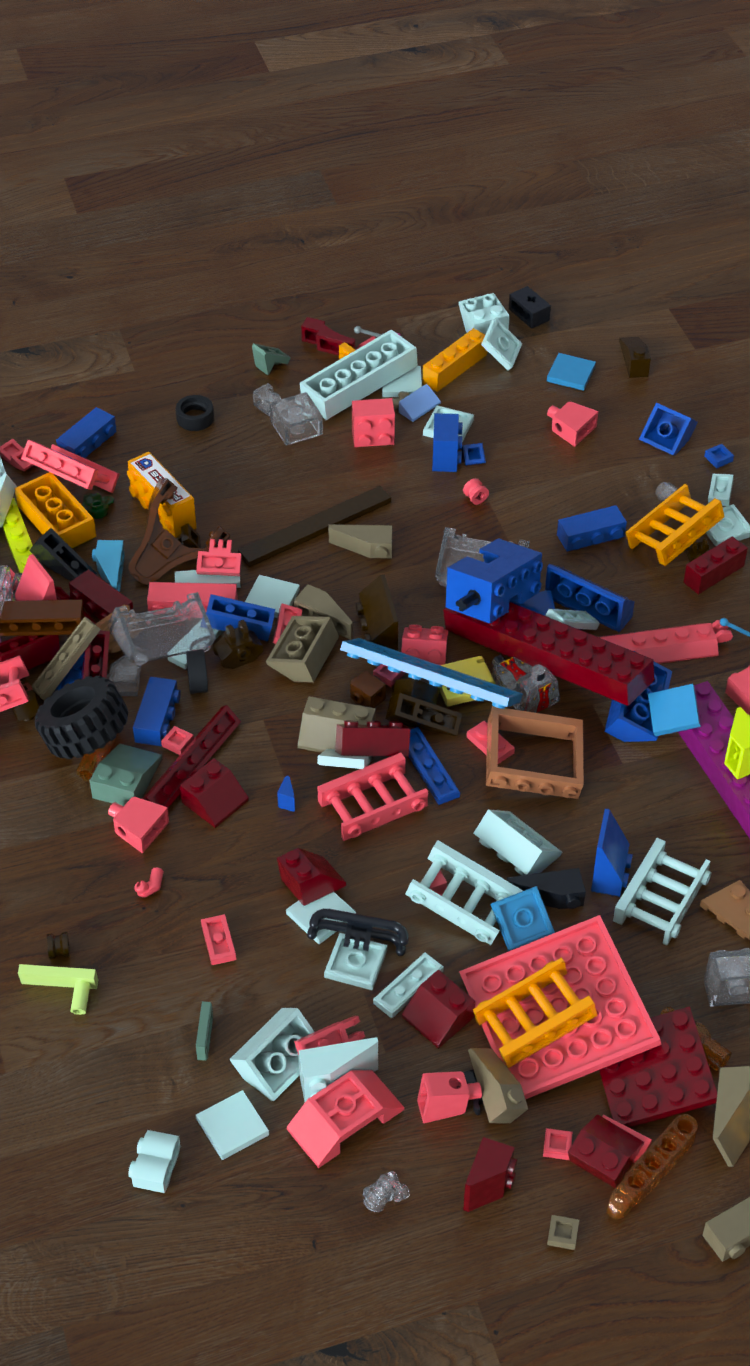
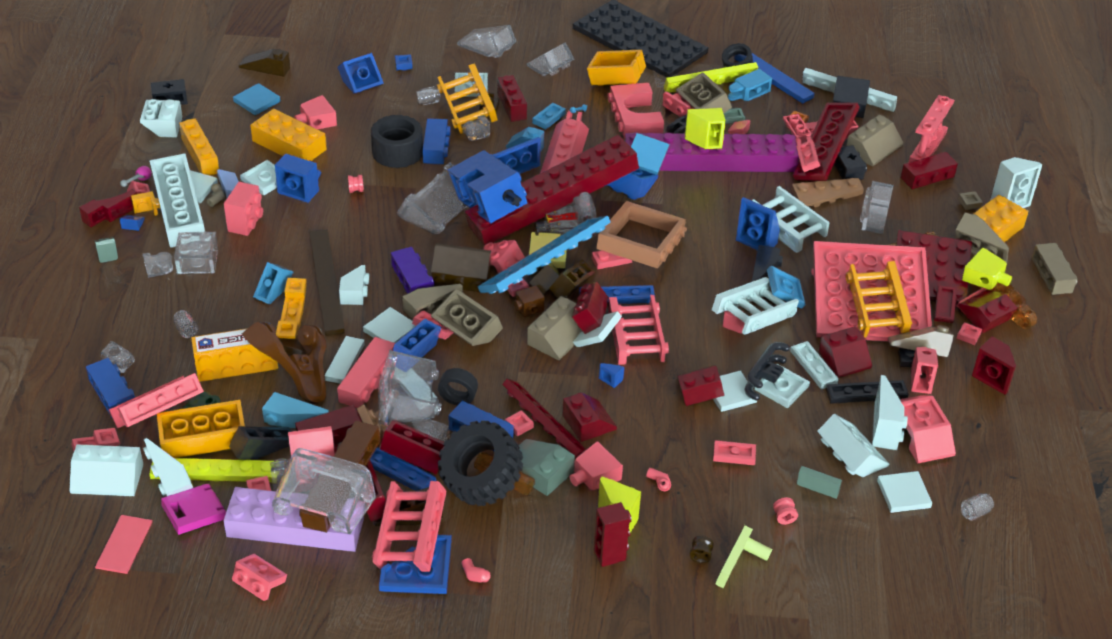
camera: 70 degrees left, 5 degrees down
(26, 851) = (611, 534): none -> dark red brick
(65, 658) = (399, 455): dark tan tile -> none
(79, 850) = (614, 492): none -> neon yellow slope
(126, 427) = (118, 356): none -> clear leg
(145, 1008) = (785, 510): none -> coral wheel
(155, 1161) = (928, 540): light aqua brick -> none
(194, 402) = (137, 321): black tyre -> none
(194, 450) = (185, 324): none -> clear brick
(219, 560) = (338, 338): coral hinge -> none
(233, 1204) = (977, 506): none -> clear brick
(238, 645) = (442, 352): dark brown hinge -> none
(256, 517) = (292, 308): none -> light orange slope
(285, 486) = (272, 282): none -> dark azure slope
(314, 546) = (353, 286): none -> light aqua slope
(320, 360) = (131, 222): none -> blue slope
(331, 1035) = (855, 413): coral hinge -> none
(349, 584) = (410, 270): none -> dark purple brick
(367, 540) = (369, 253): dark tan slope -> none
(384, 1190) = (989, 424): clear plate -> none
(390, 1052) = (861, 391): none -> black tile
(501, 344) = (204, 117): light aqua tile -> none
(516, 415) = (288, 136): none -> light orange brick
(516, 842) = (716, 271): light aqua slope -> none
(561, 479) = (397, 141): none -> black tyre
(563, 1232) = (1039, 350): dark tan plate -> none
(574, 618) = (529, 173): light aqua tile -> none
(592, 1100) = (945, 304): none -> dark red tile
(639, 555) = (477, 129): none -> clear leg
(645, 607) = (525, 135): none -> dark azure slope
(663, 1124) = (986, 270): none -> neon yellow torso
(709, 608) = (549, 116): none -> dark azure plate
(721, 488) = (434, 70): light aqua plate -> none

